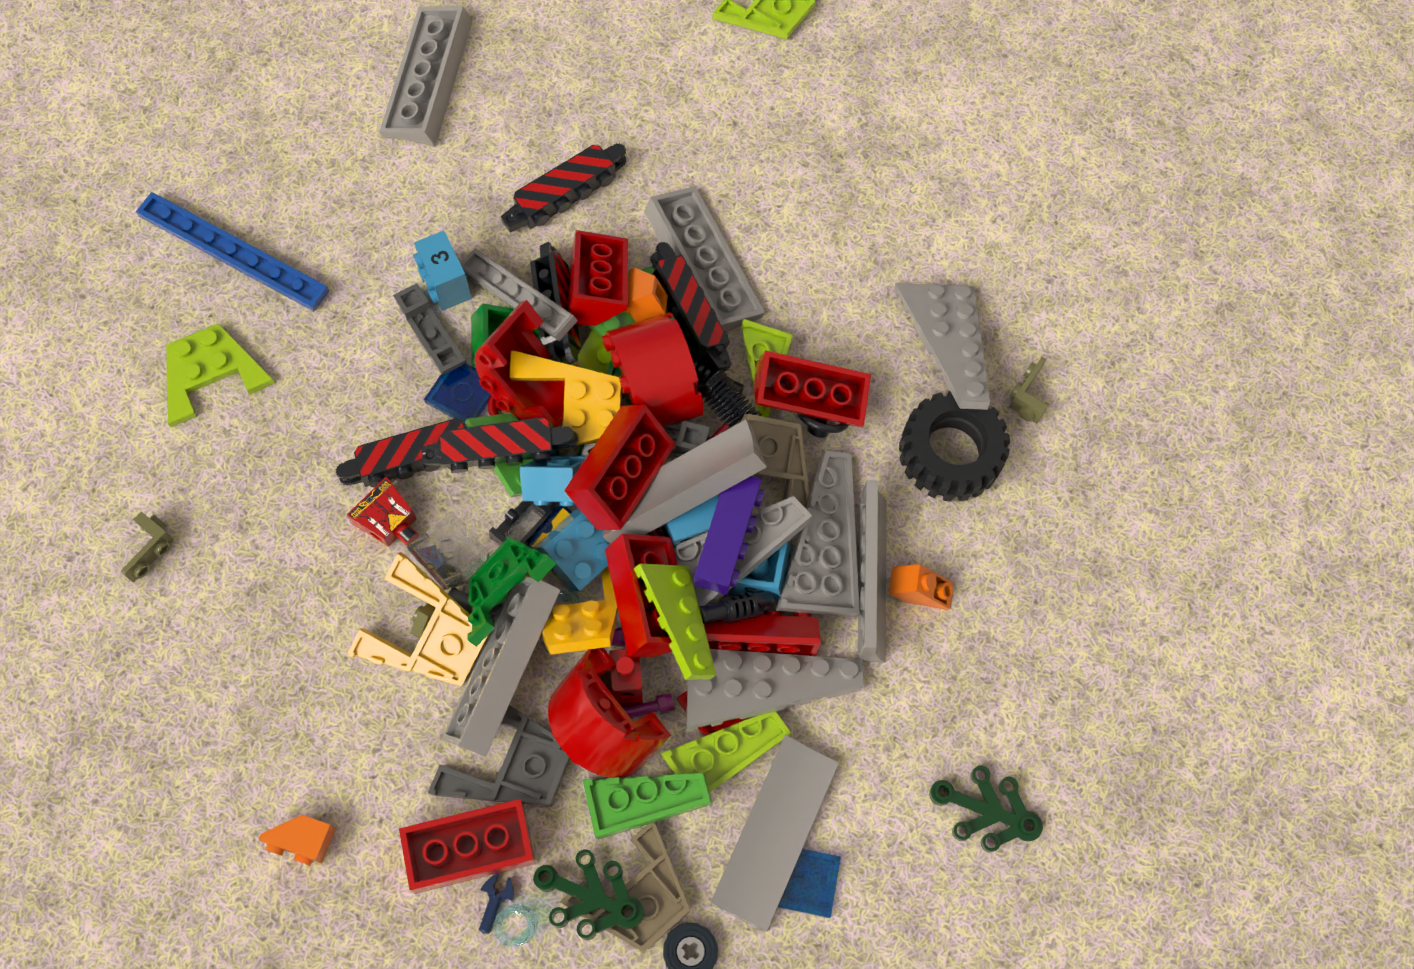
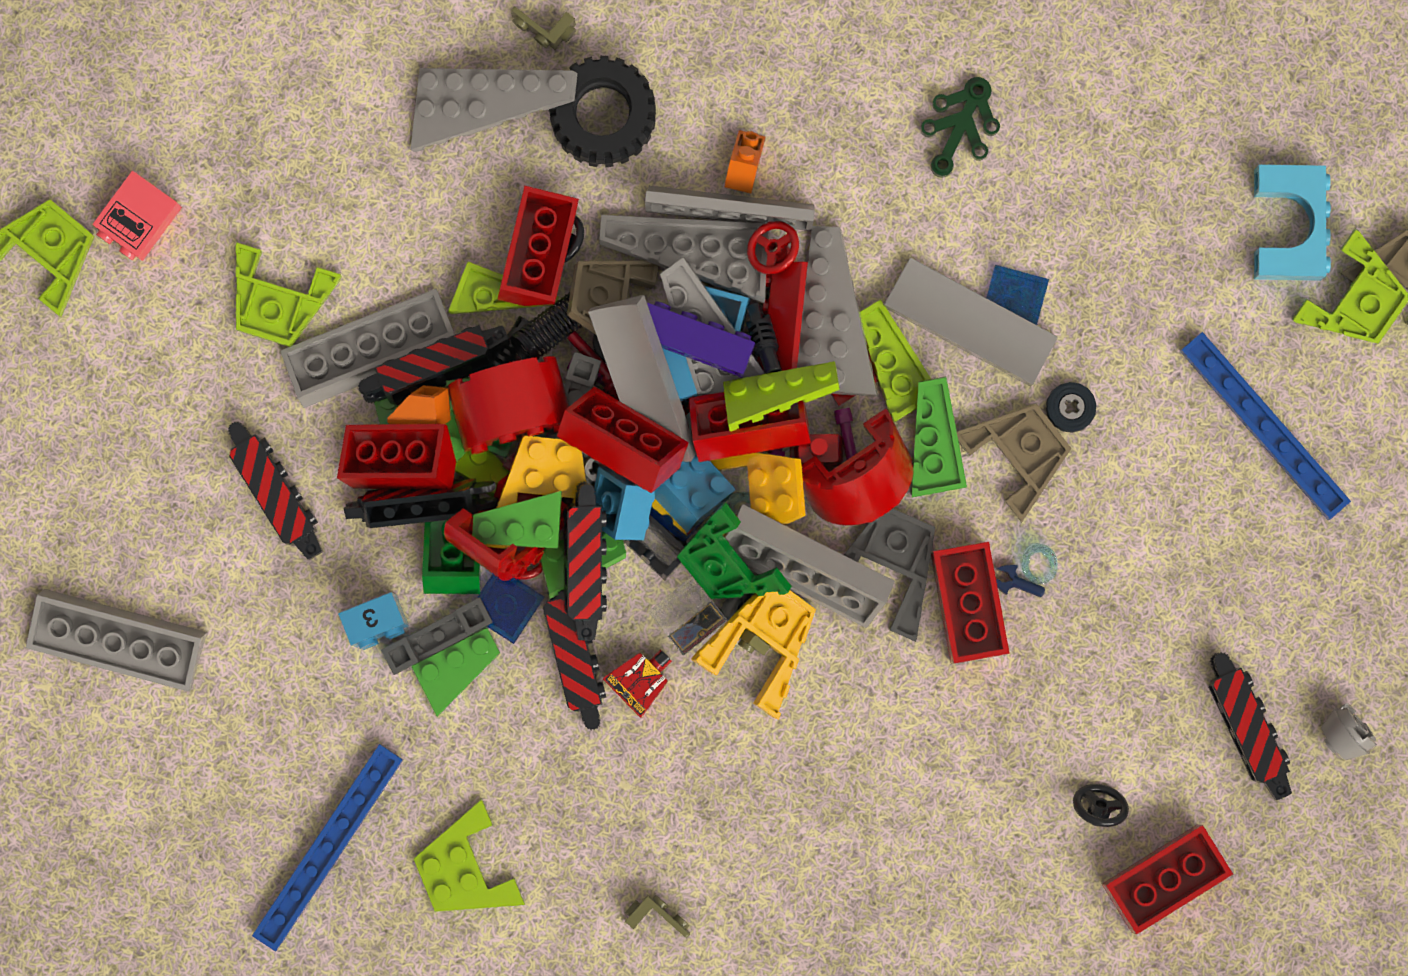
camera: 85 degrees left, 15 degrees up
(302, 837) = (951, 756): orange slope -> none
(401, 350) = (454, 668): none -> bright green wing
(514, 291) = (409, 542): light grey tile -> none
(532, 382) = (522, 523): none -> bright green wing
(593, 898) = (1022, 491): dark green plant -> none
(732, 177) = (273, 310): none -> lime wing
(807, 66) = (136, 217): none -> coral brick
(830, 618) = (783, 254): none -> red piece

